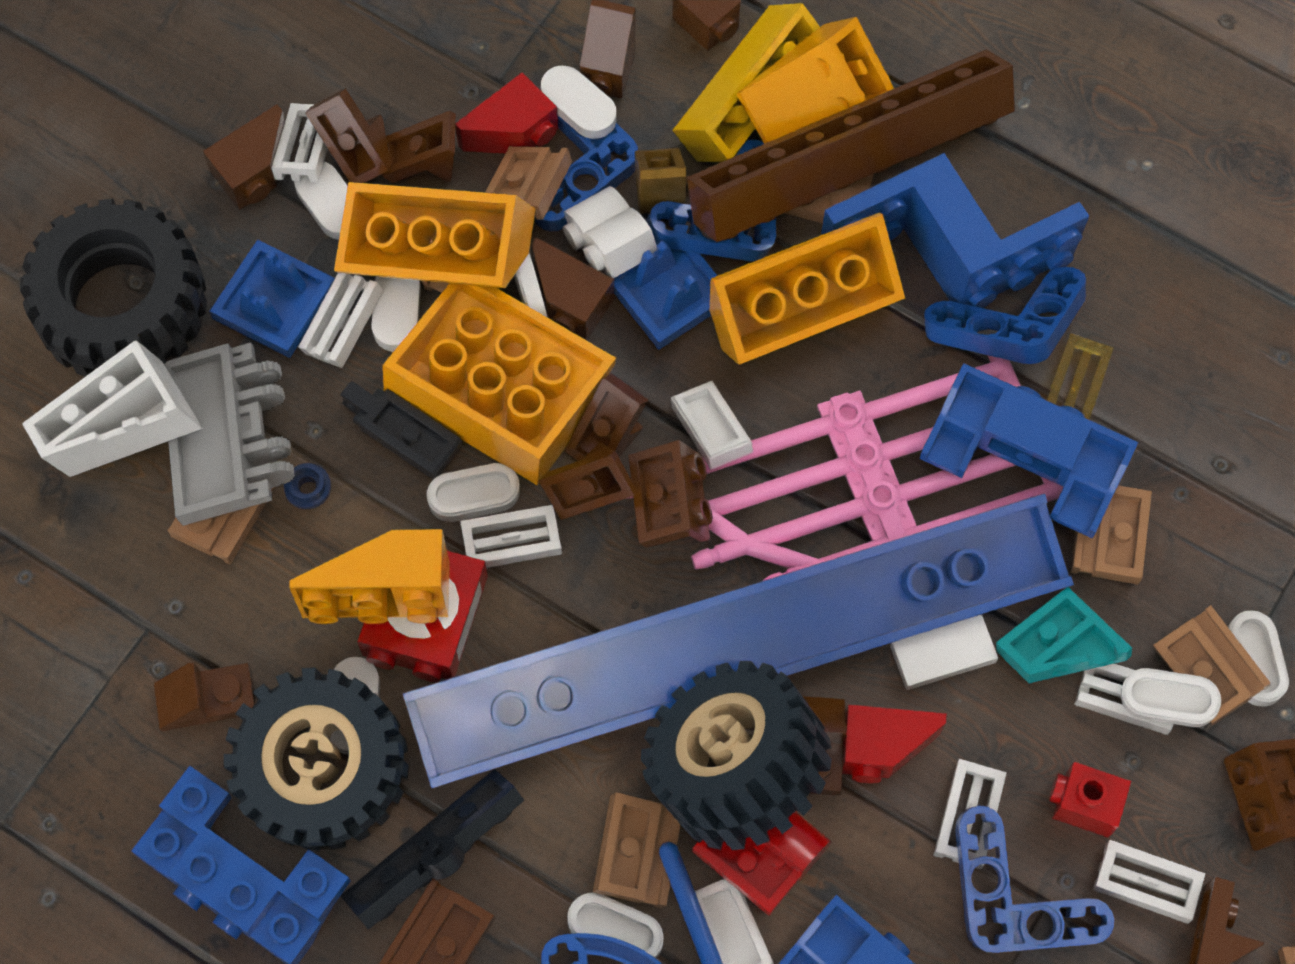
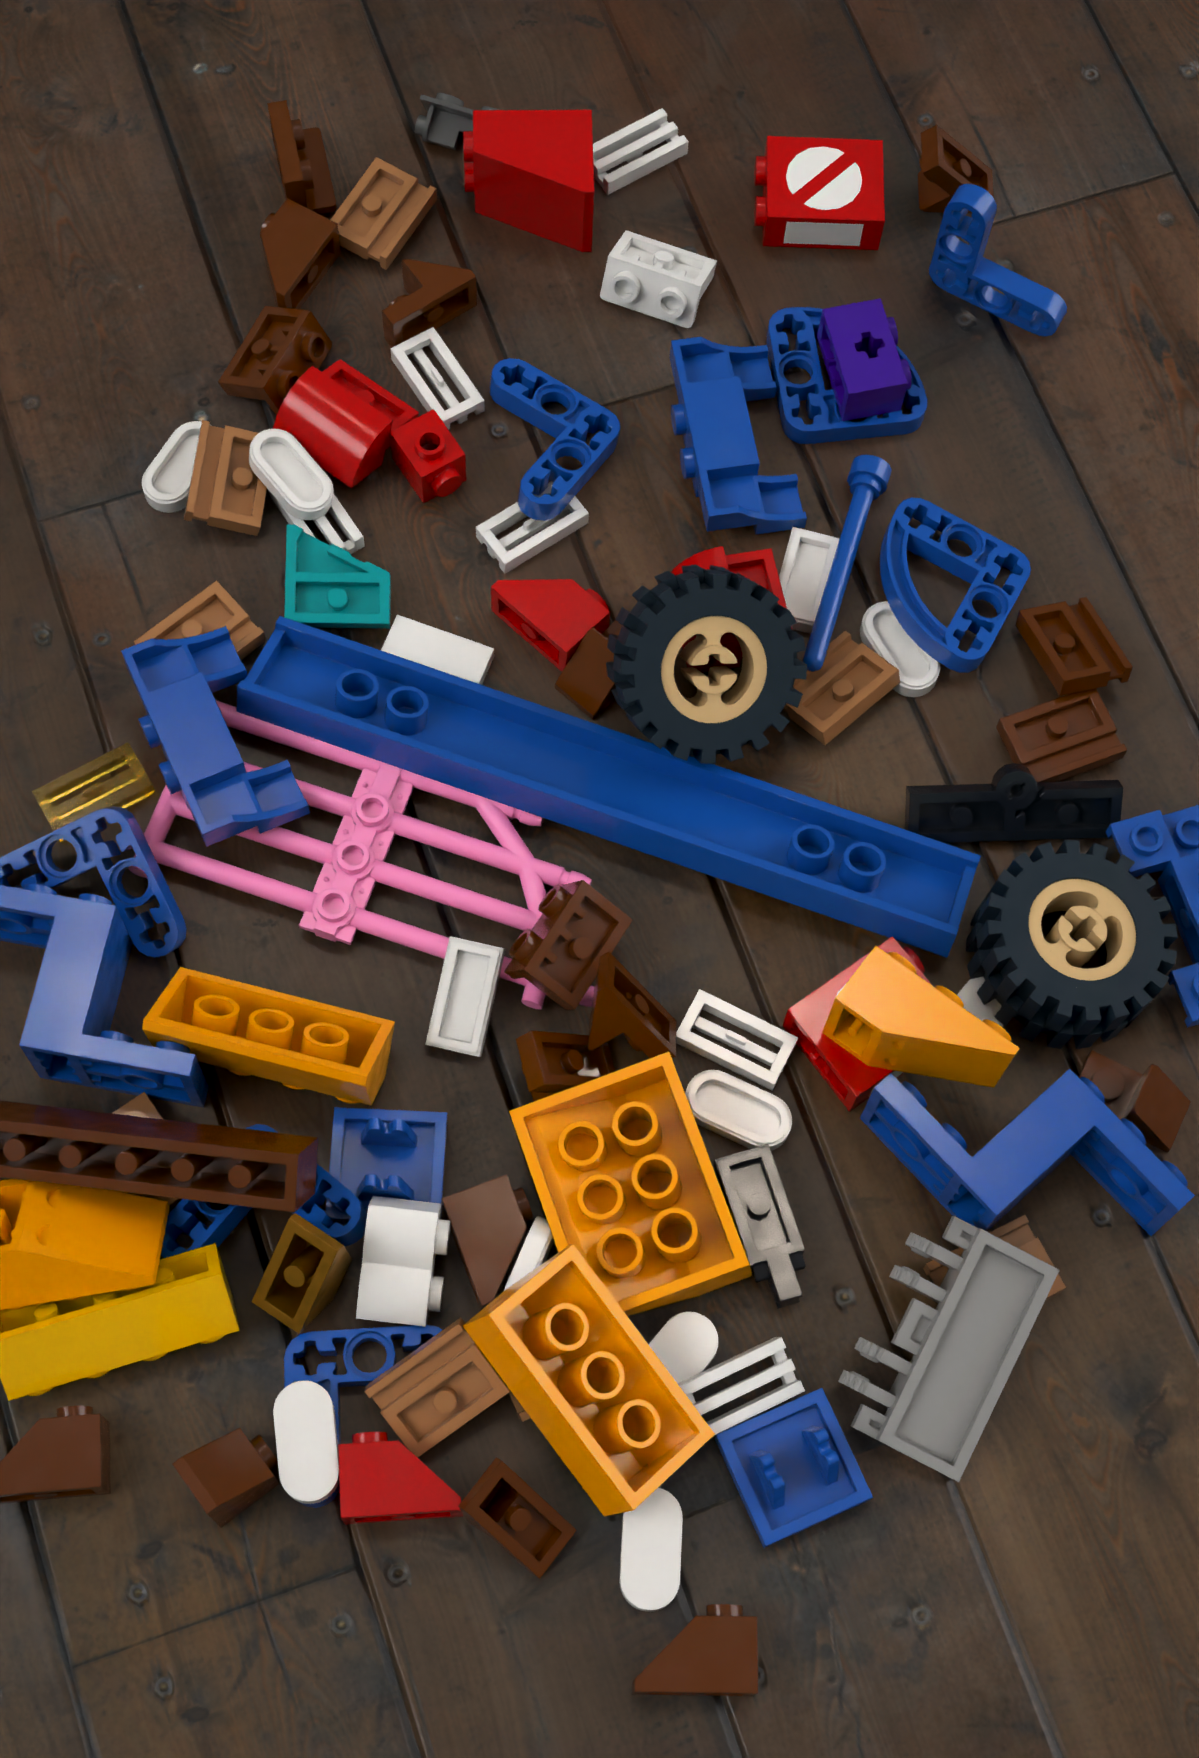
camera: 145 degrees left, 0 degrees up
(101, 239) = (1041, 1575): black tyre -> none
(112, 414) = (1048, 1429): white wedge -> none
(247, 581) = (1058, 1124): none -> blue bracket
(299, 167) = (667, 1598): white tile -> none
(308, 473) = (893, 1218): dark blue plate -> none
(354, 143) = (578, 1588): reddish brown slope -> none
(1178, 779) = (342, 420): none -> red brick

